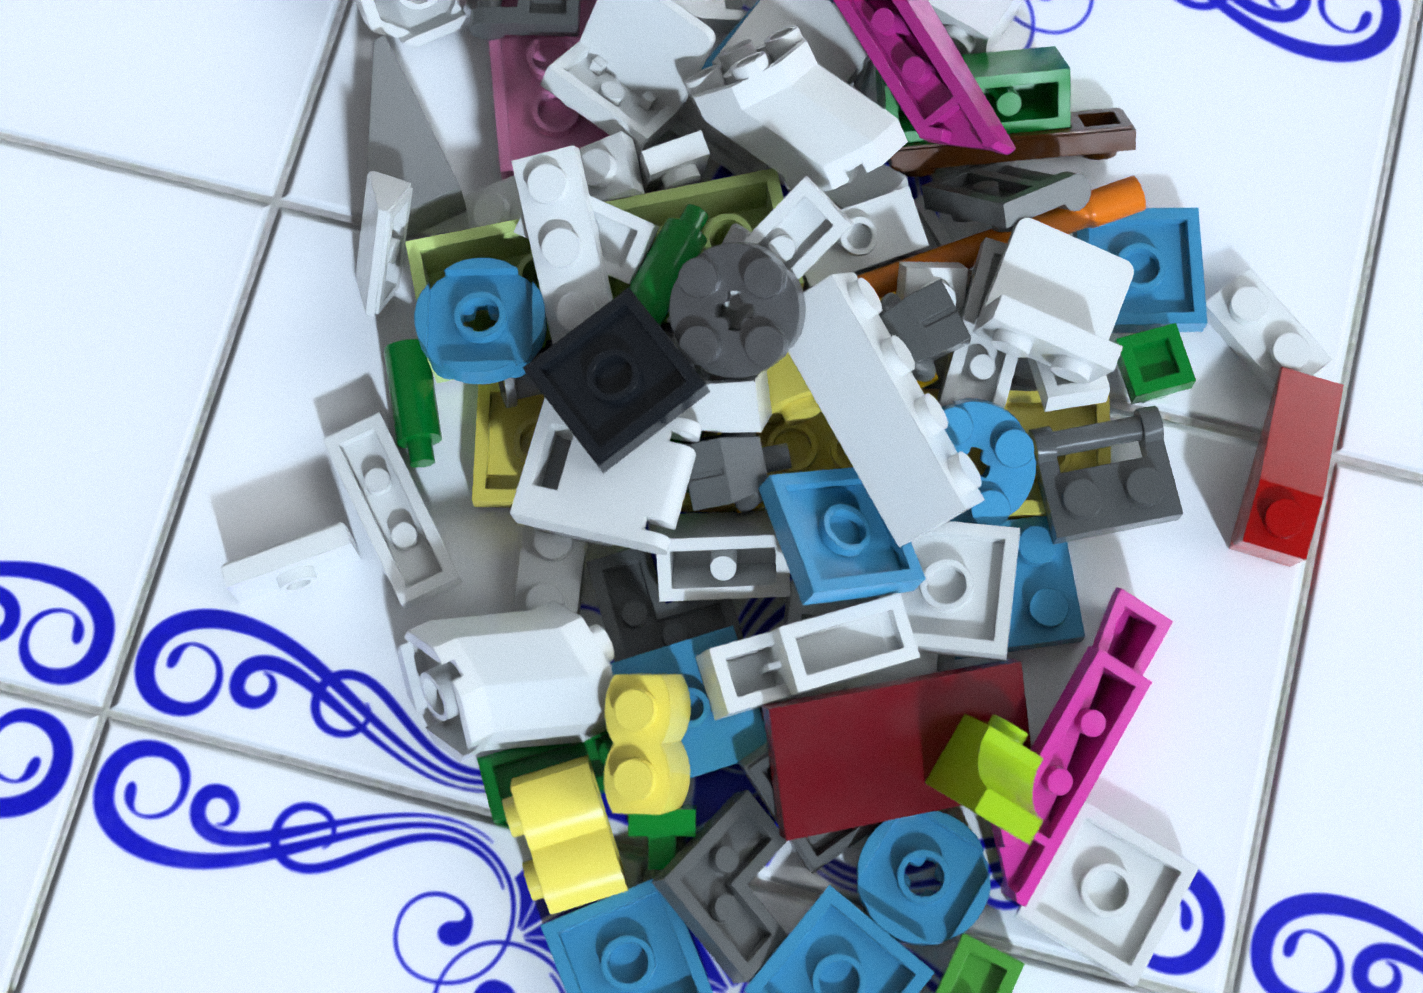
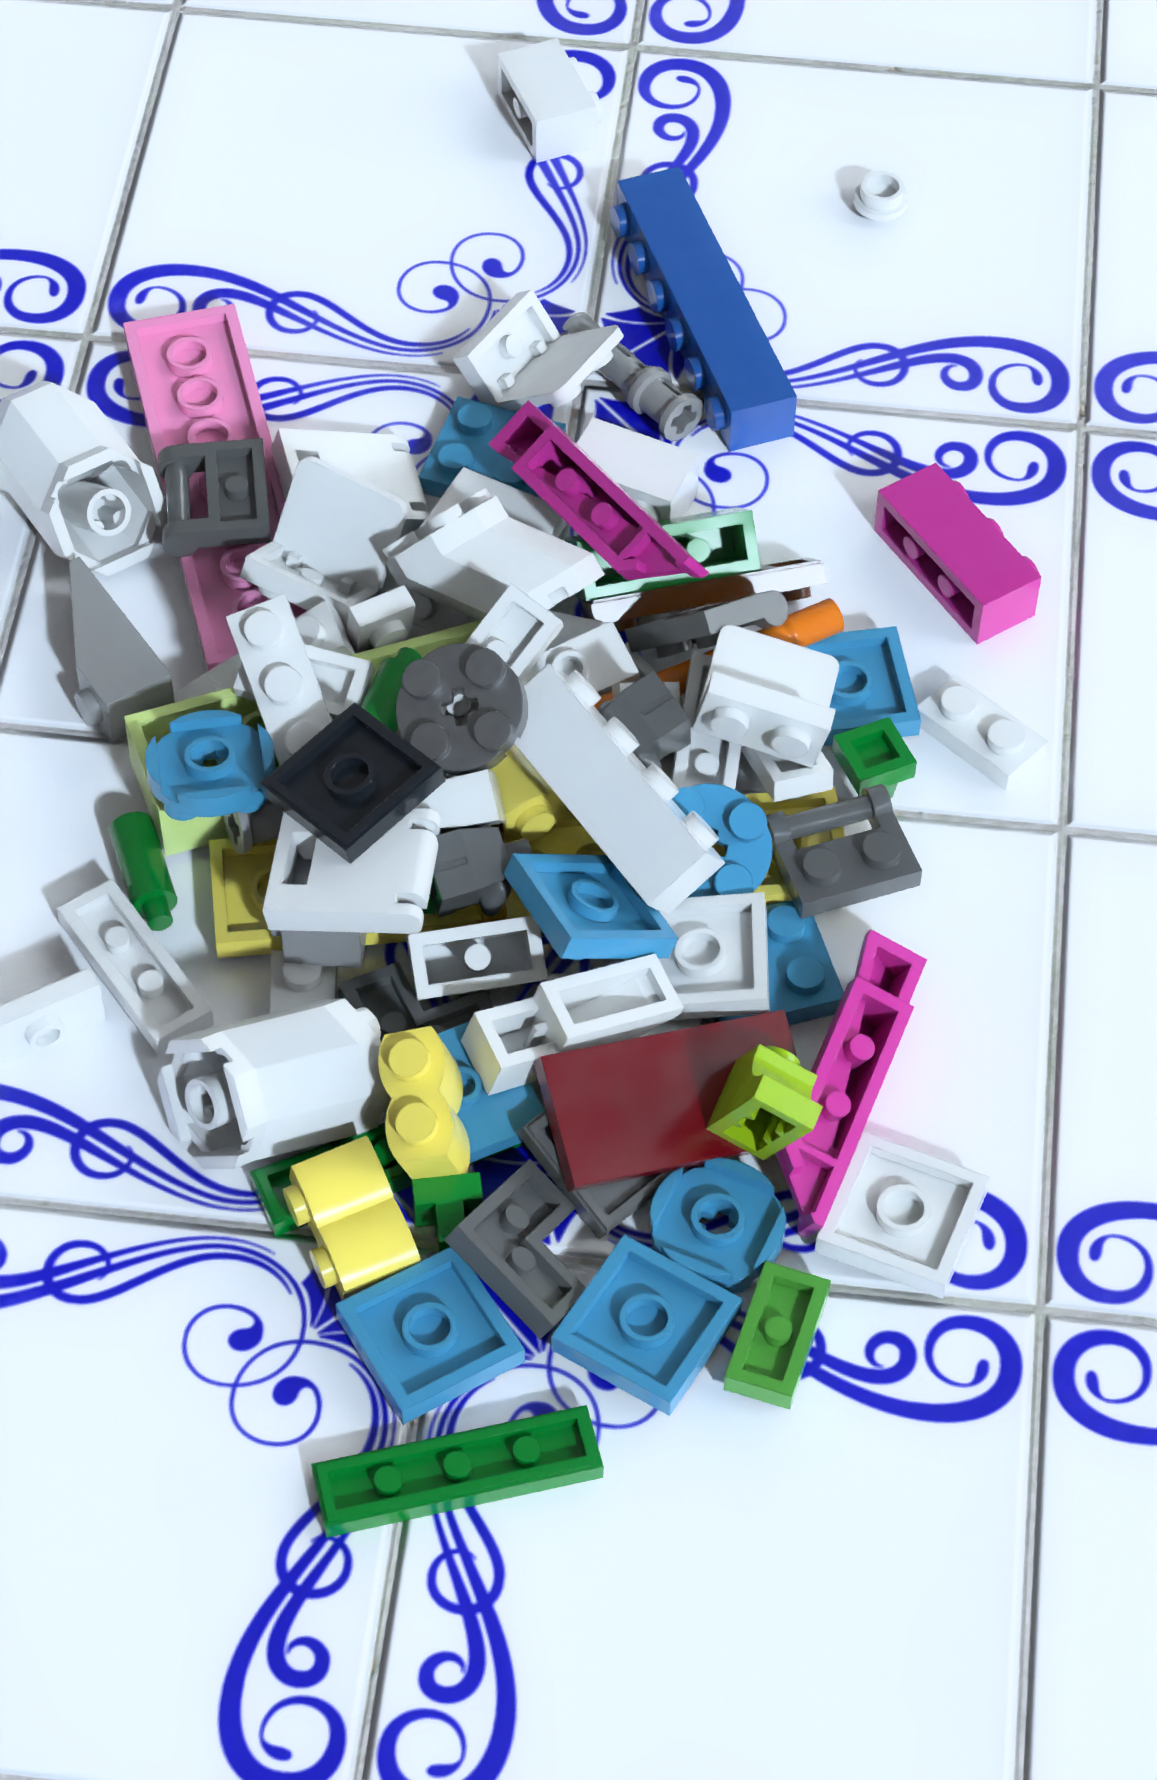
camera: 10 degrees left, 20 degrees down
(382, 240) = (97, 725): white slope -> none
(1274, 122) = (957, 553): none -> dark pink brick
(1289, 470) = (1019, 836): slope -> none

